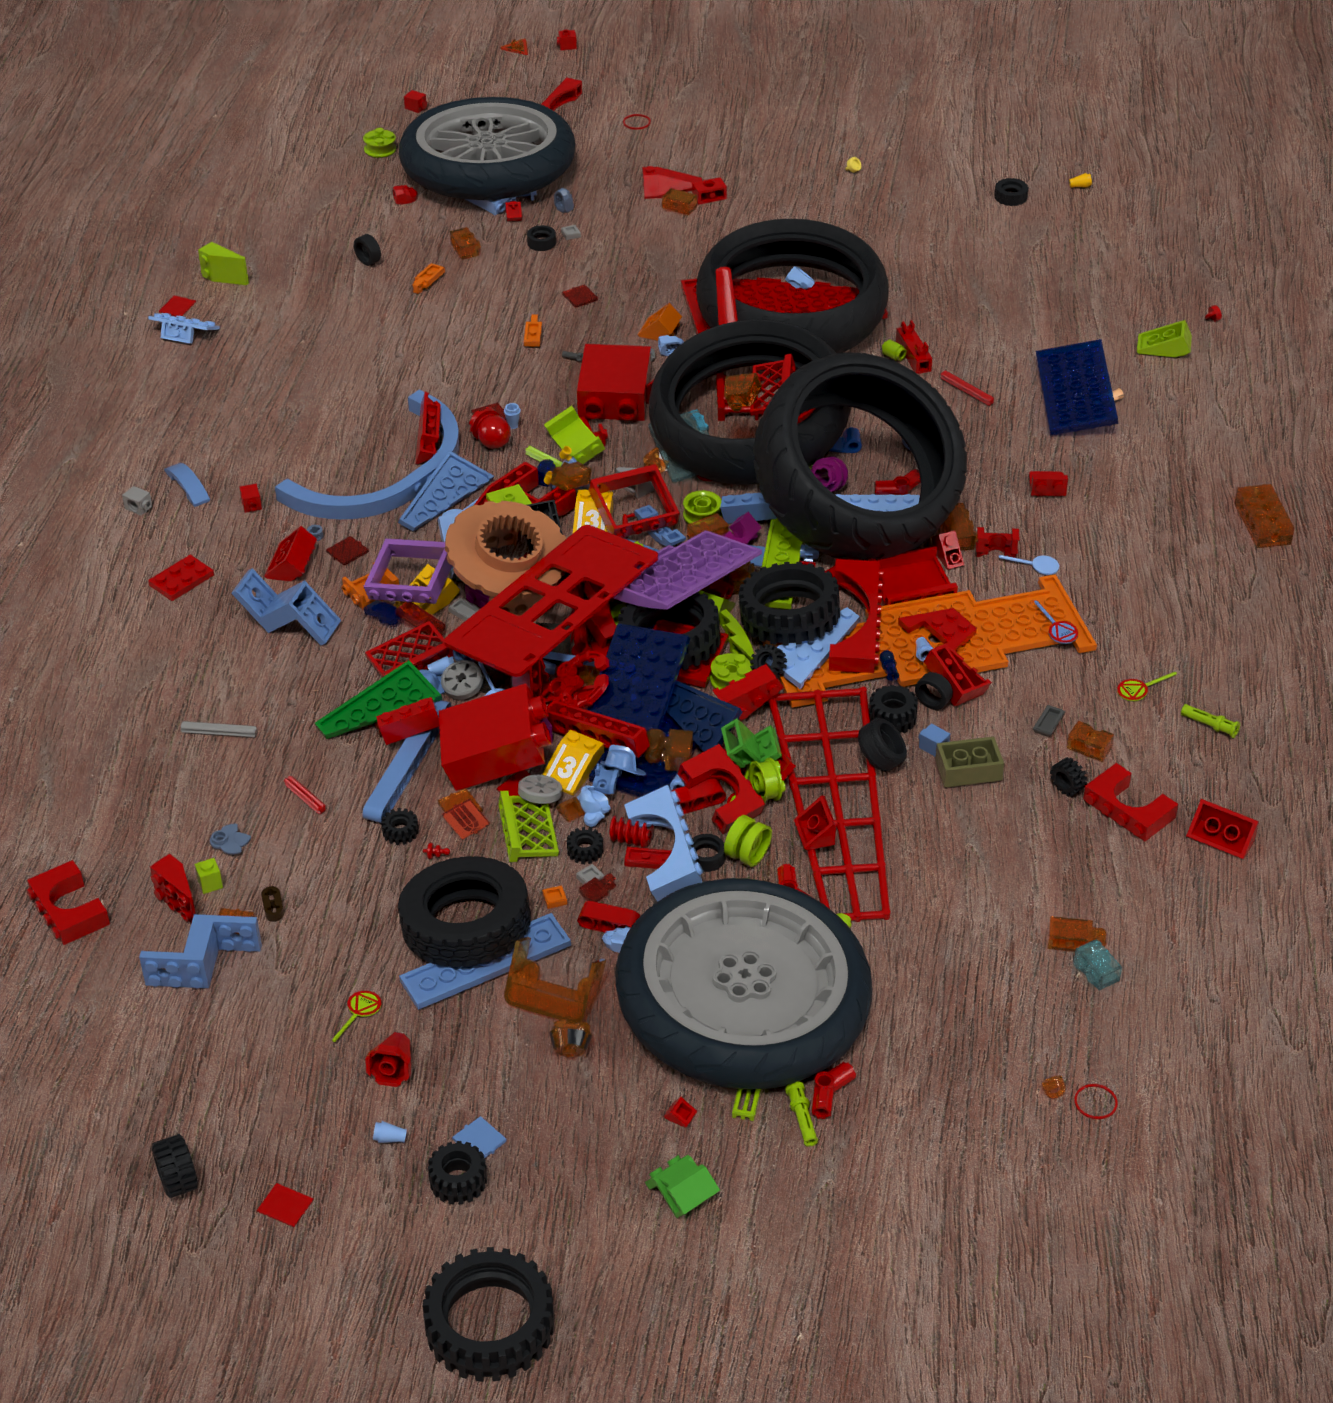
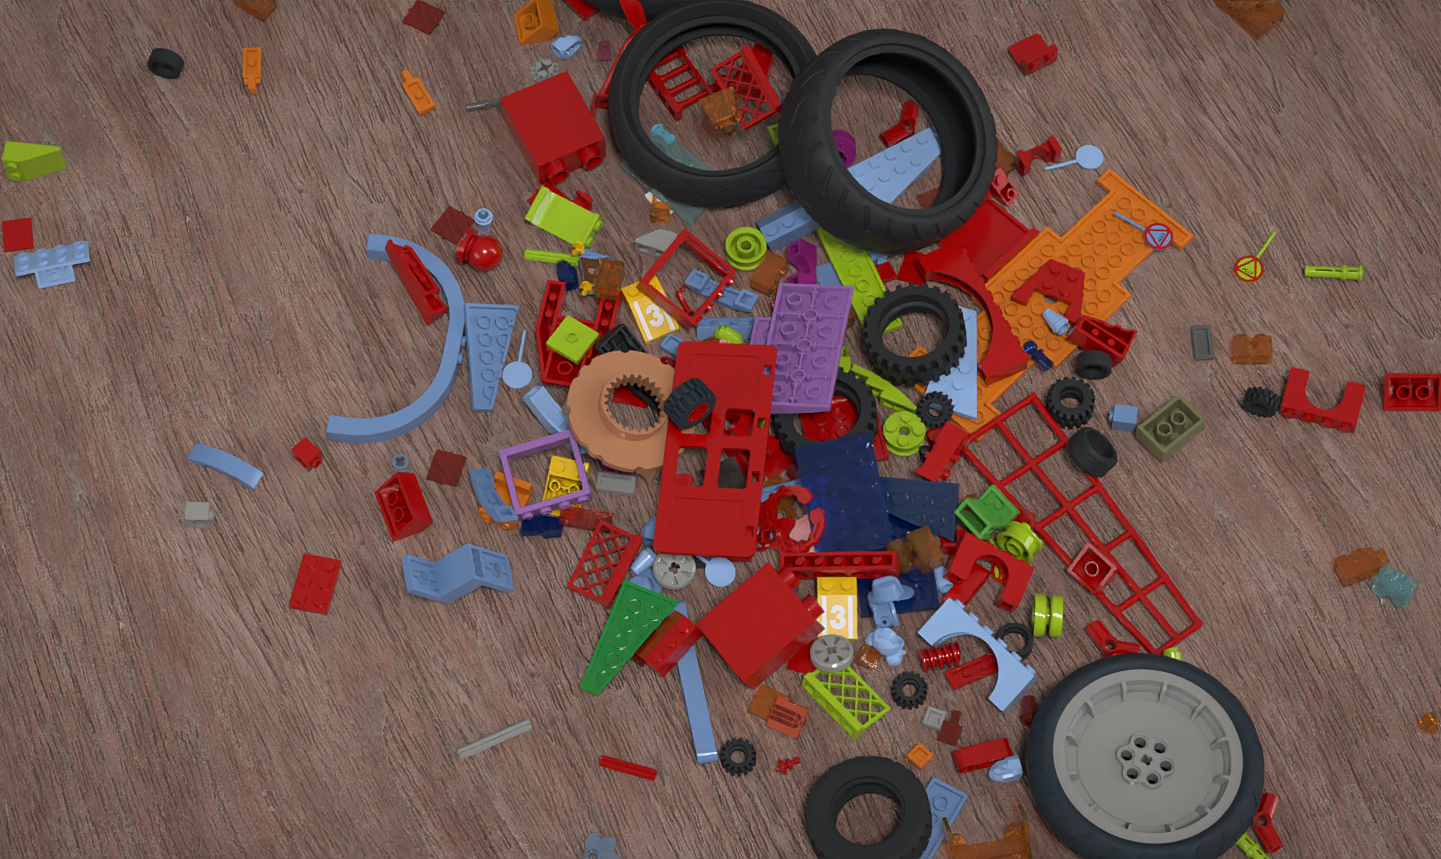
camera: 30 degrees left, 20 degrees up
(359, 570) = (488, 496): none -> medium blue slope
(551, 551) = (690, 403): none -> black wheel

